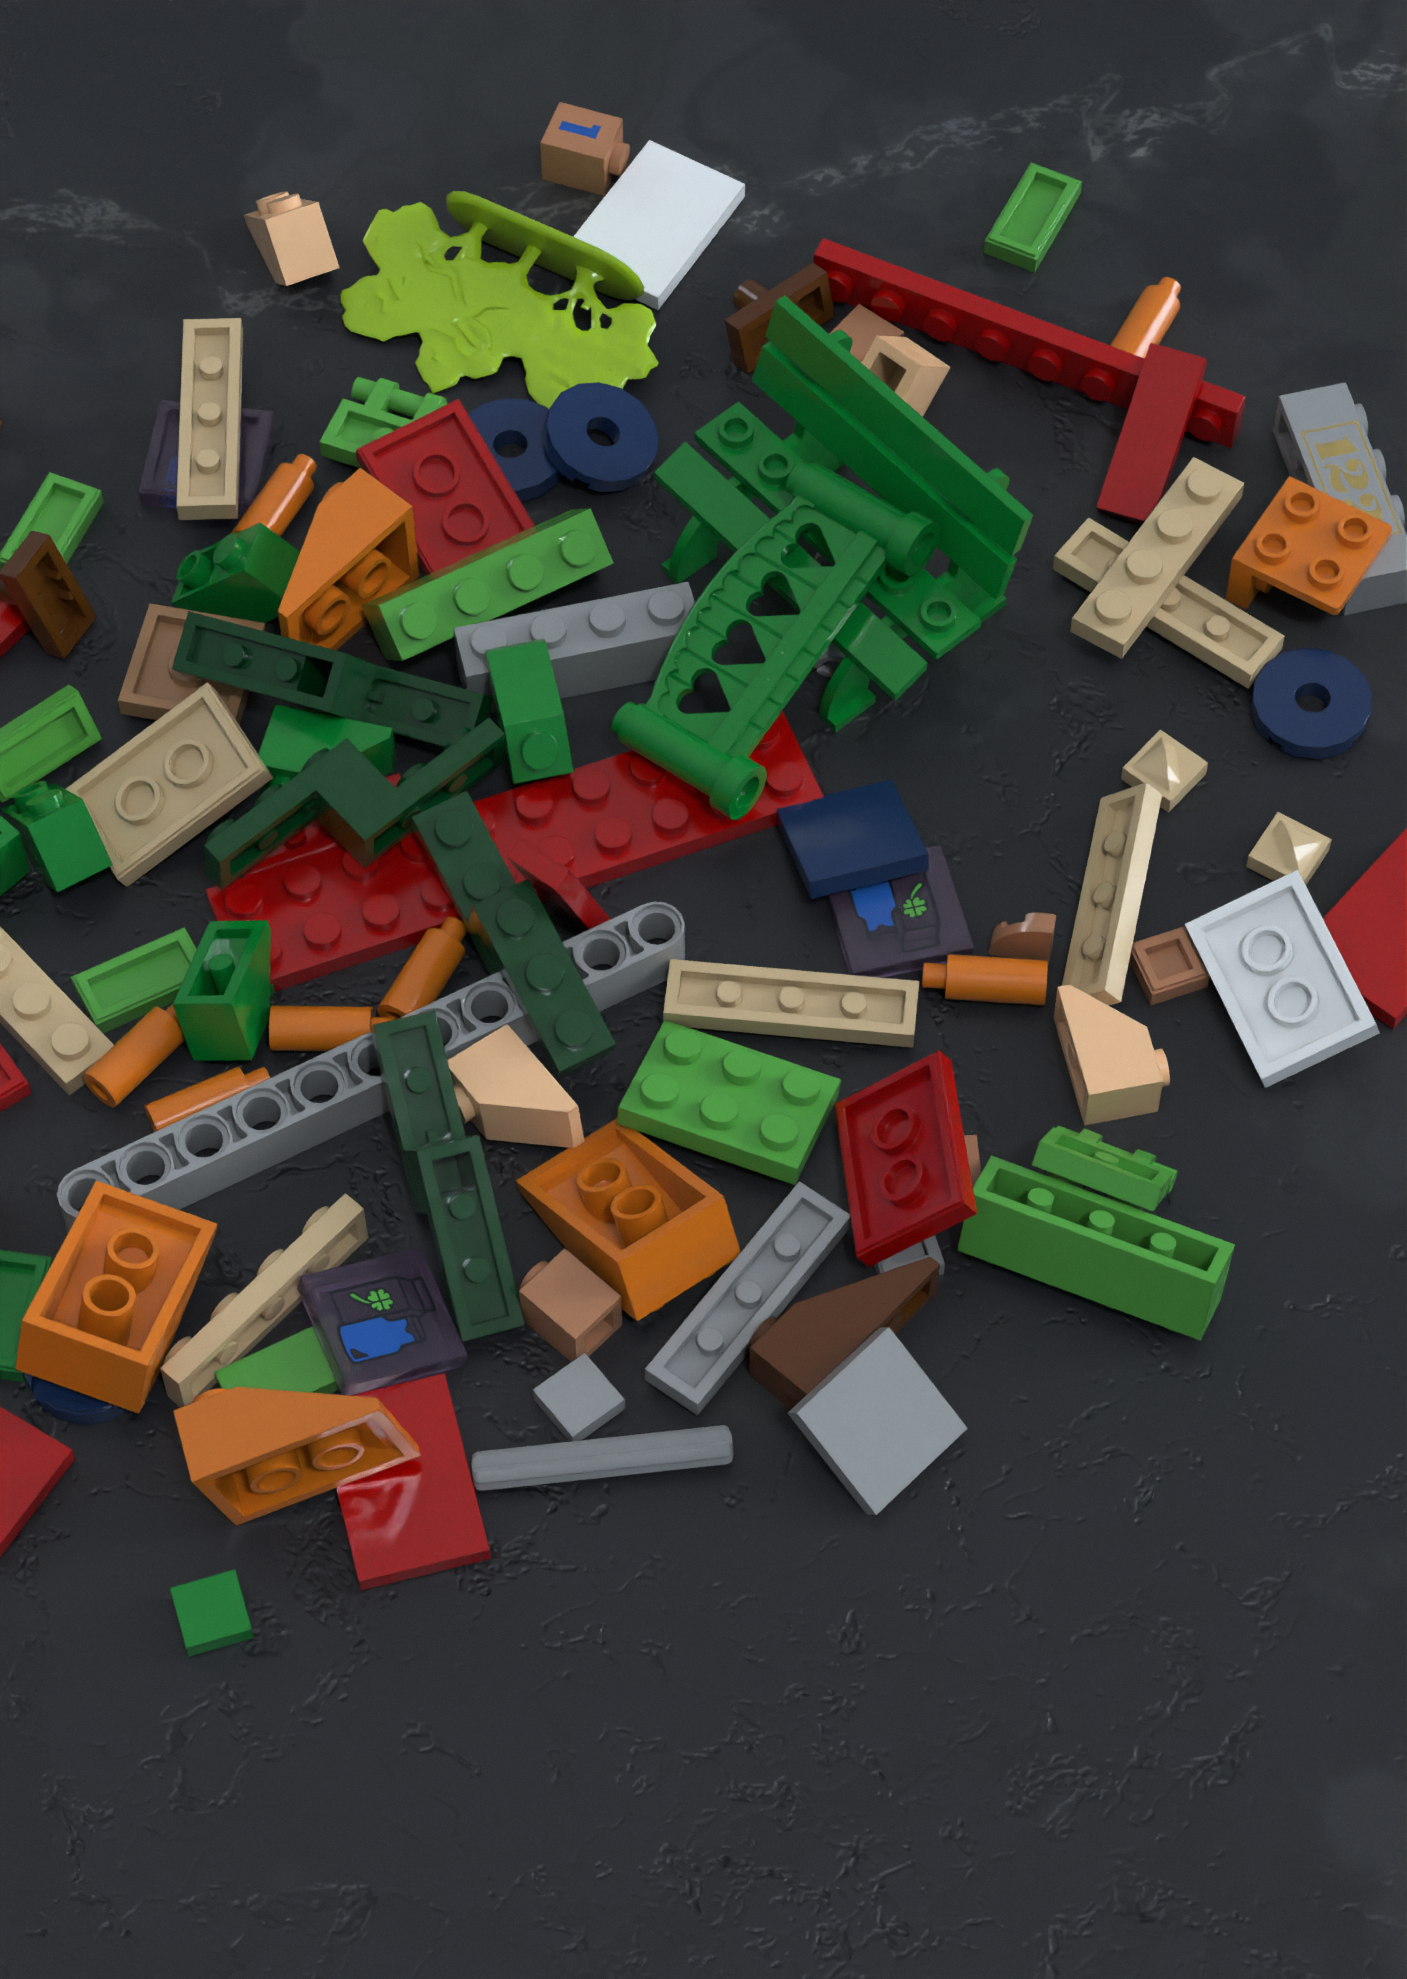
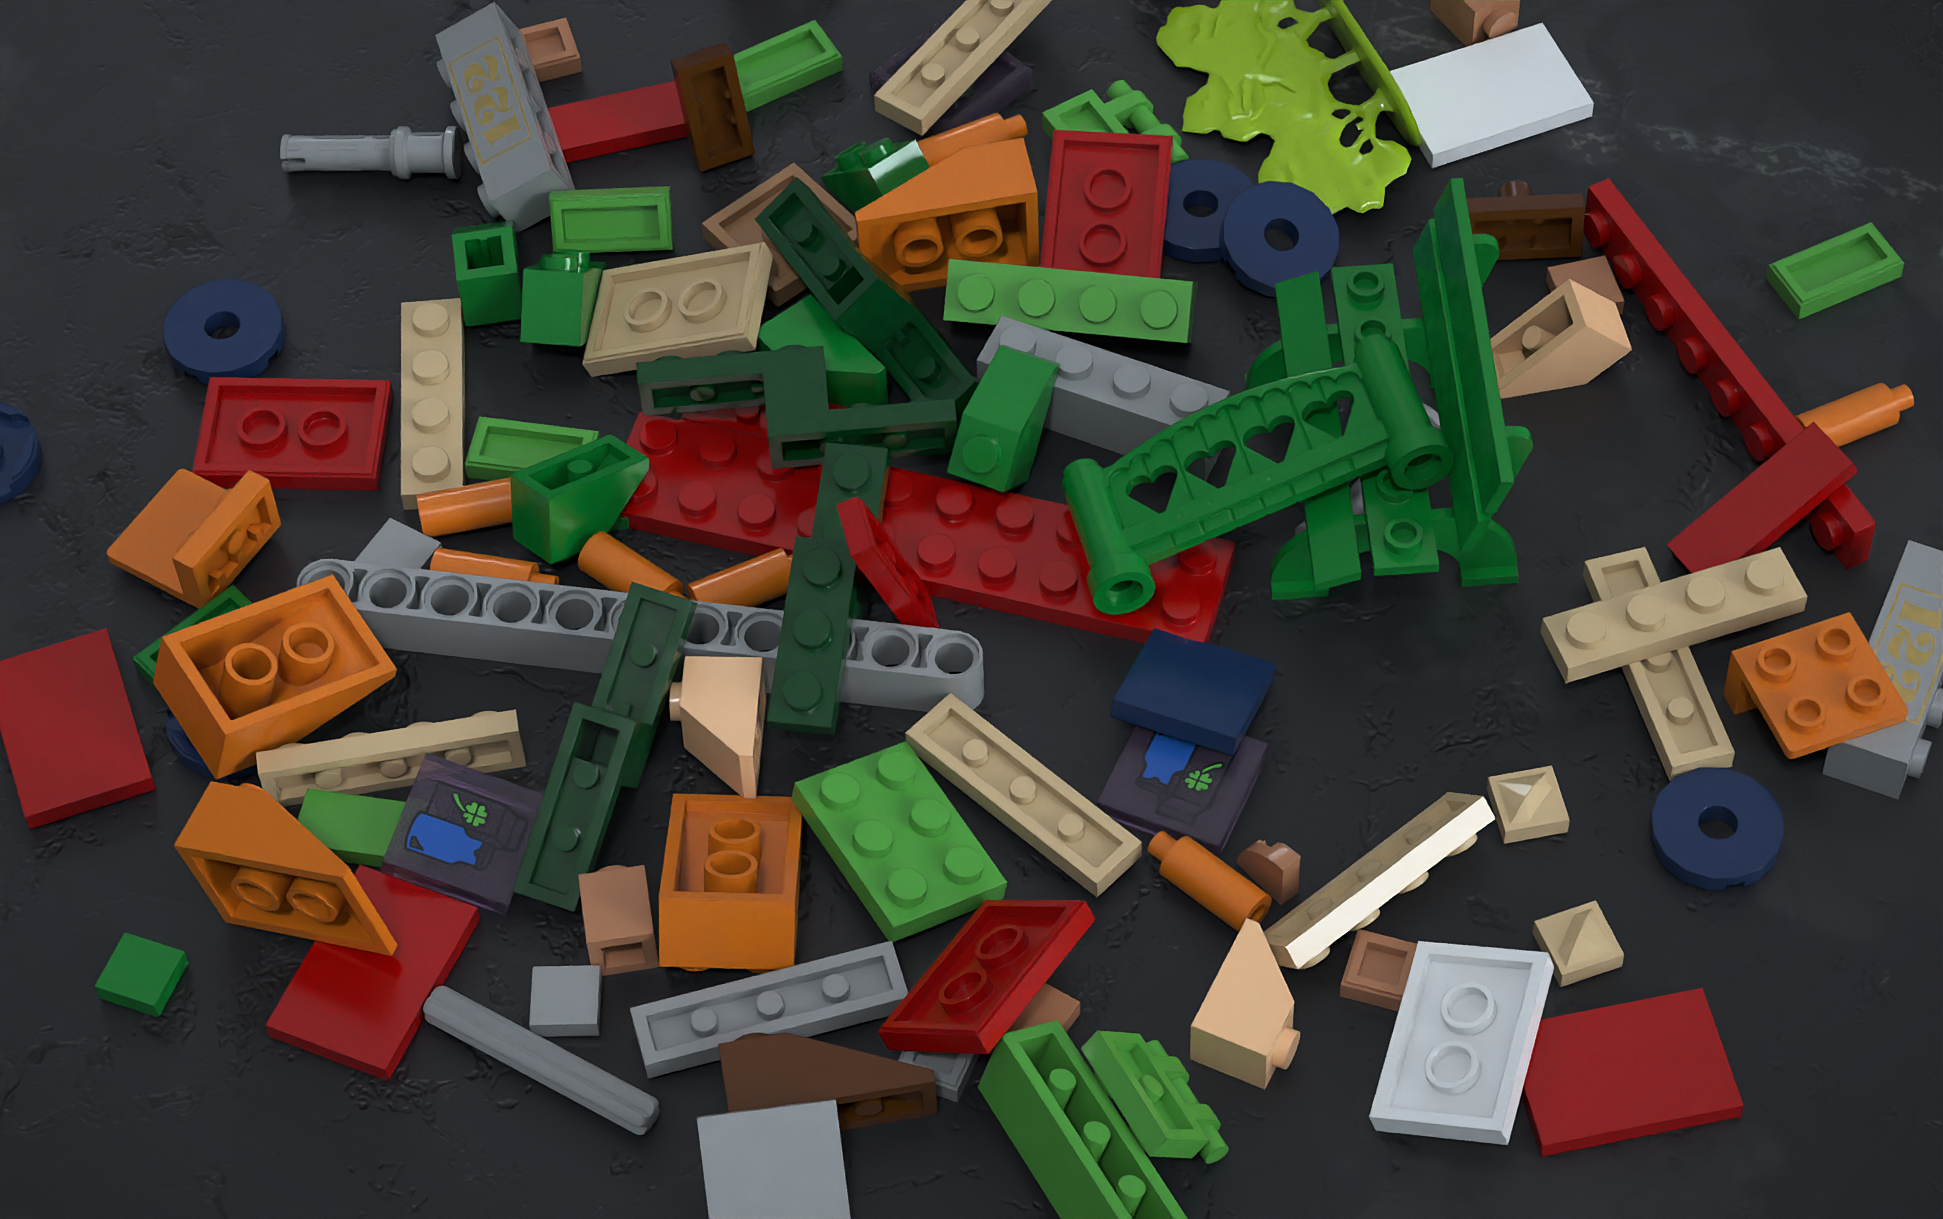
camera: 40 degrees right, 5 degrees down
(105, 1129) = (400, 547): none -> light grey tile

